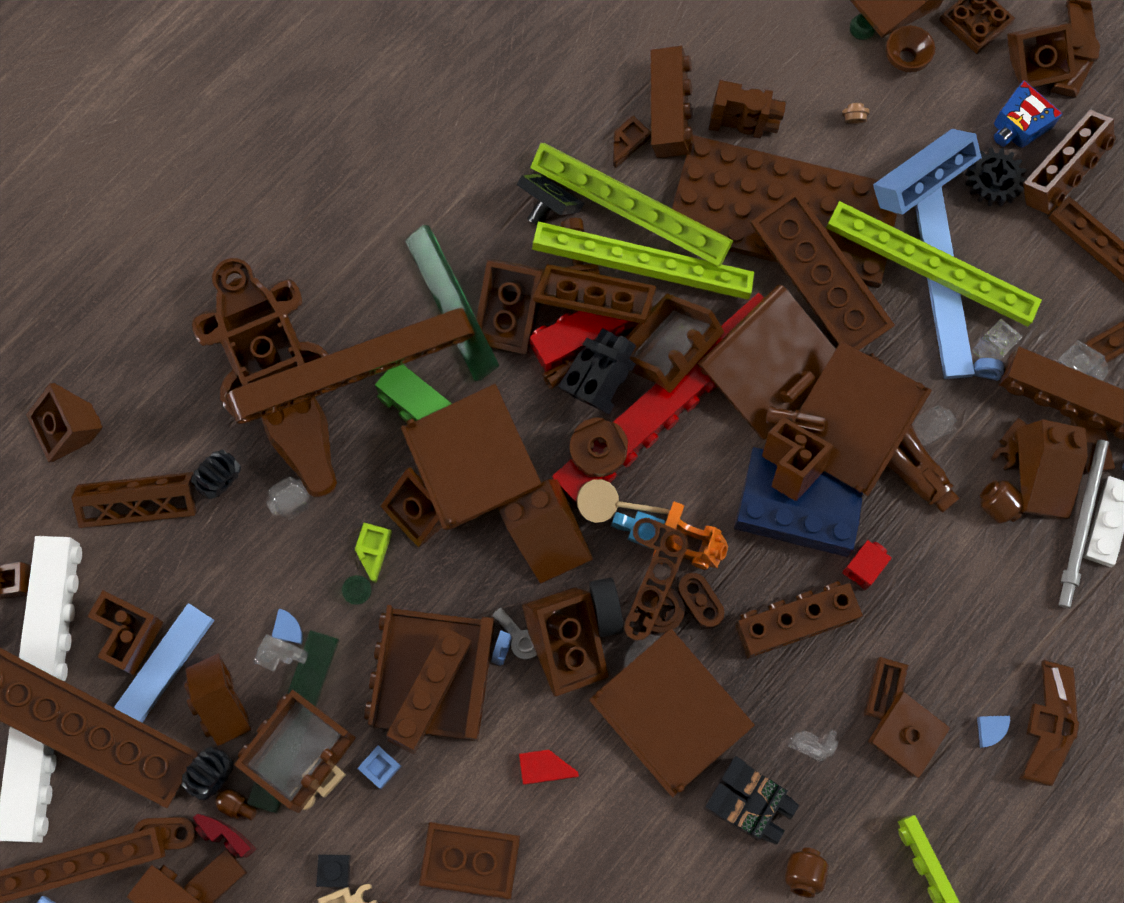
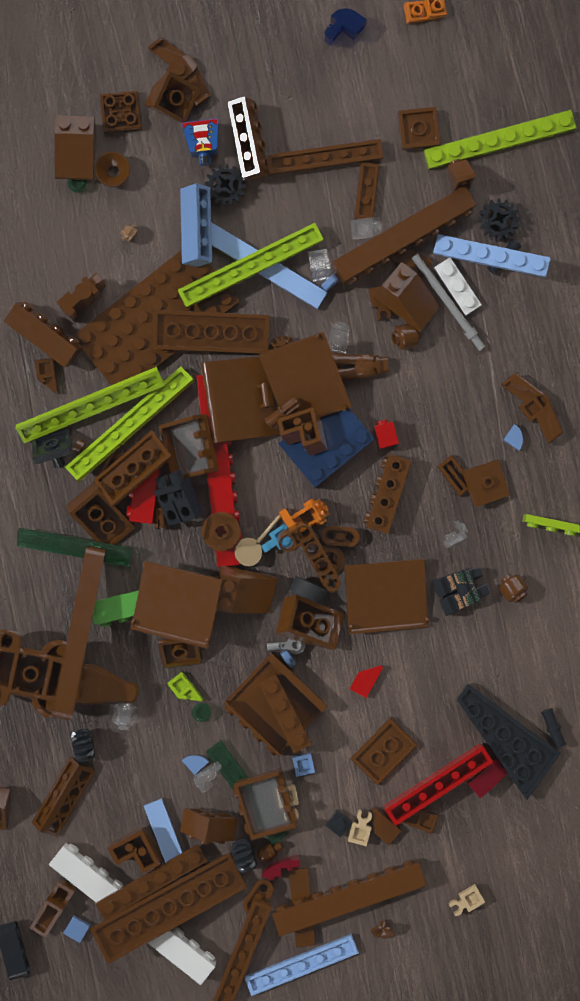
camera: 55 degrees left, 15 degrees up
(94, 678) = (150, 882): none -> reddish brown plate

